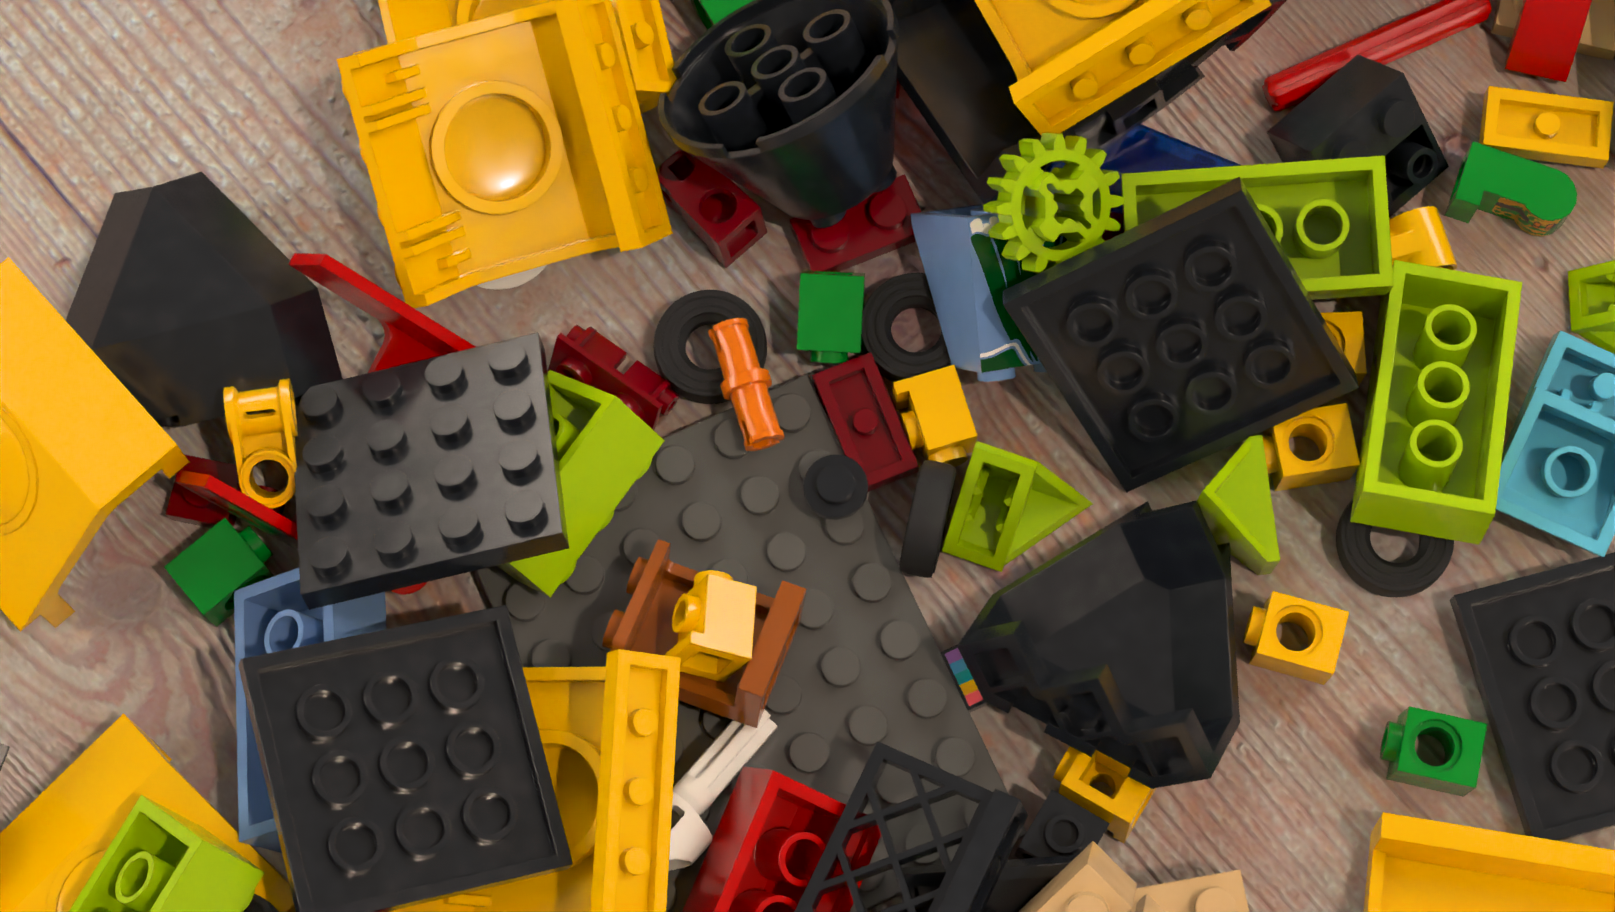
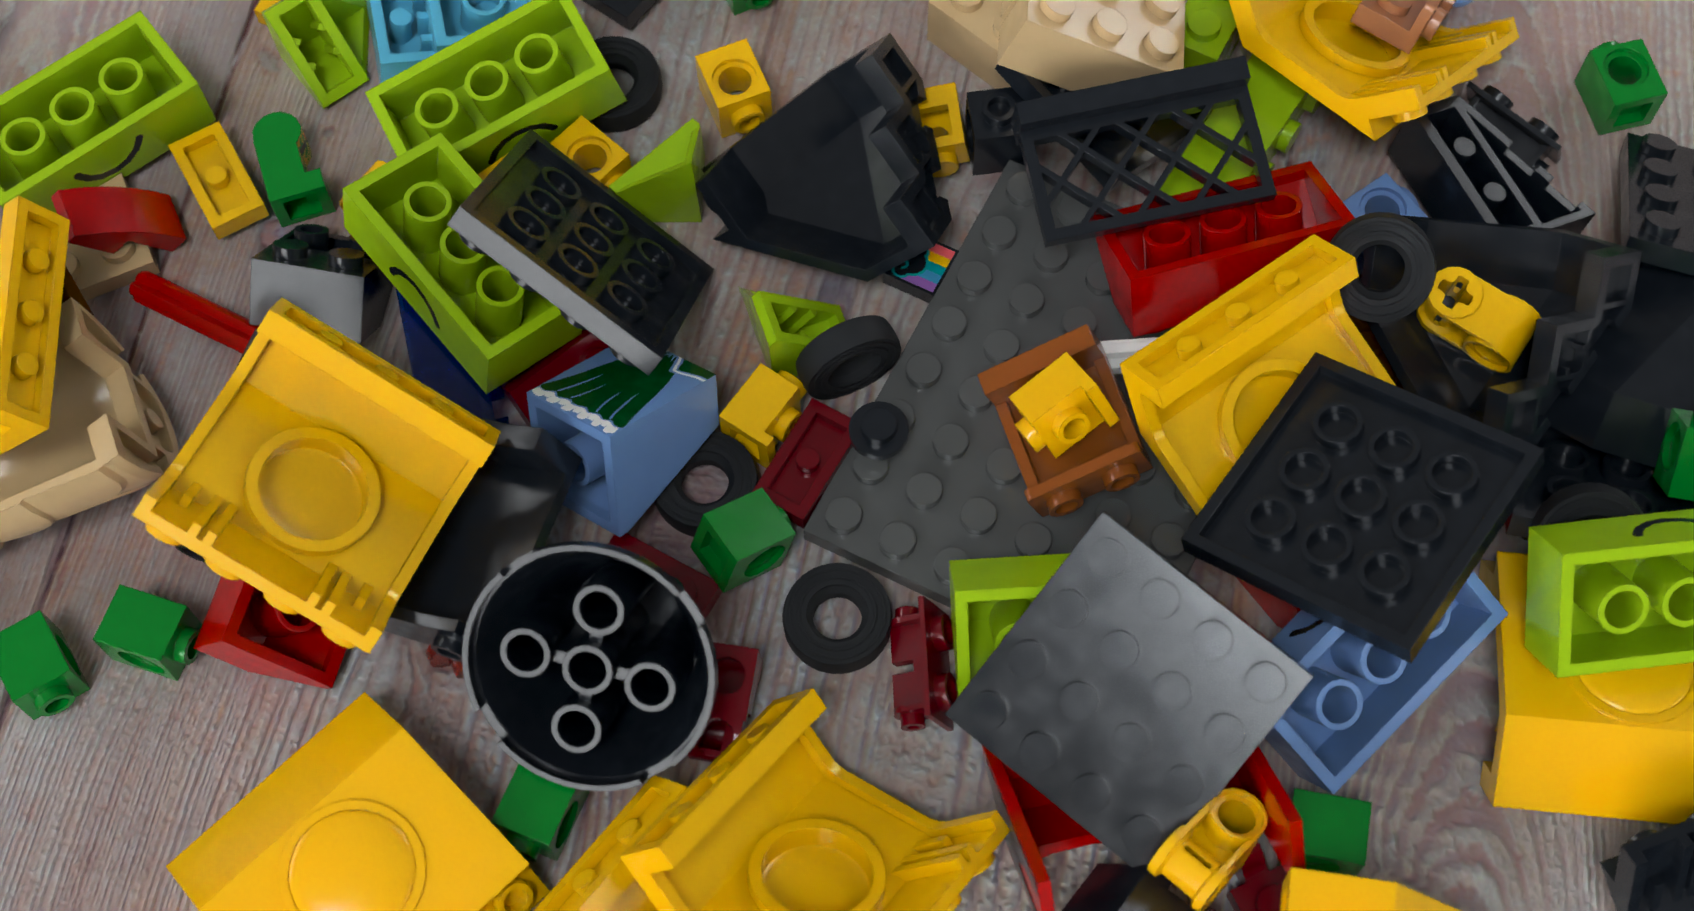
camera: 130 degrees left, 10 degrees down
(746, 384) = (852, 550): orange pin -> none
(1029, 207) = (551, 384): lime gear -> none

